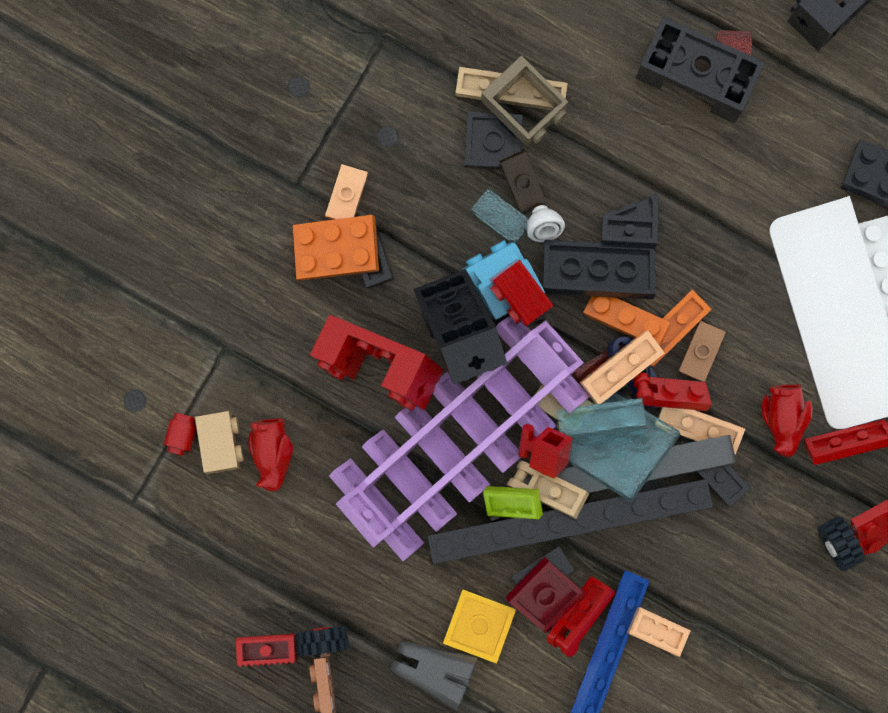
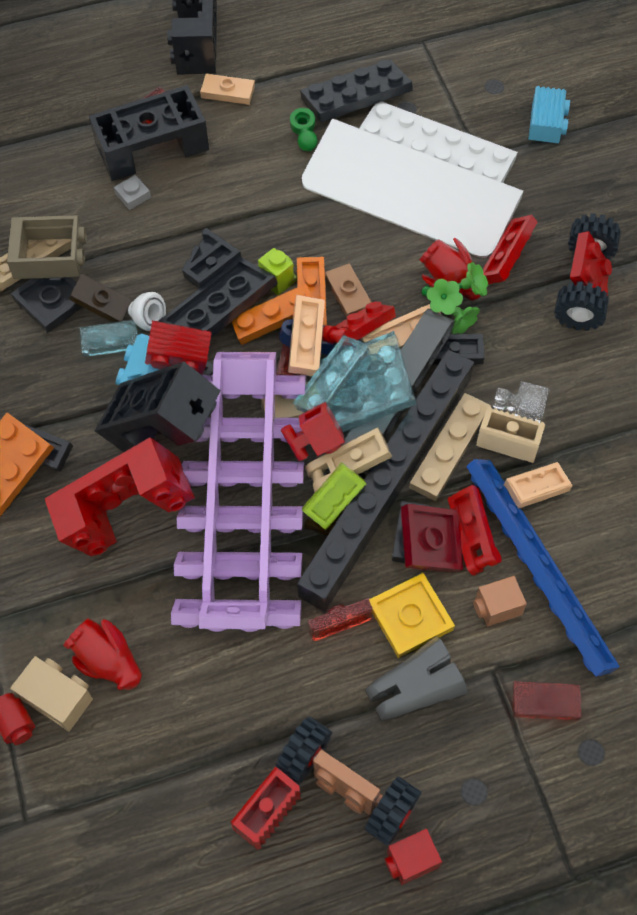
camera: 45 degrees left, 20 degrees down
(433, 581) = (340, 619): none -> clear red plate
(541, 678) = (499, 601): none -> nougat brick
(636, 542) = (449, 447): none -> tan plate
(640, 104) = (132, 192): none -> light grey plate
(668, 286) = (281, 266): none -> lime brick
(678, 581) = (510, 434): none -> tan brick
(717, 571) = (528, 402): none -> clear brick
(746, 444) = (446, 297): none -> bright green plant
(808, 79) = (227, 89): none -> light nougat plate
(815, 191) = (307, 139): none -> green plate

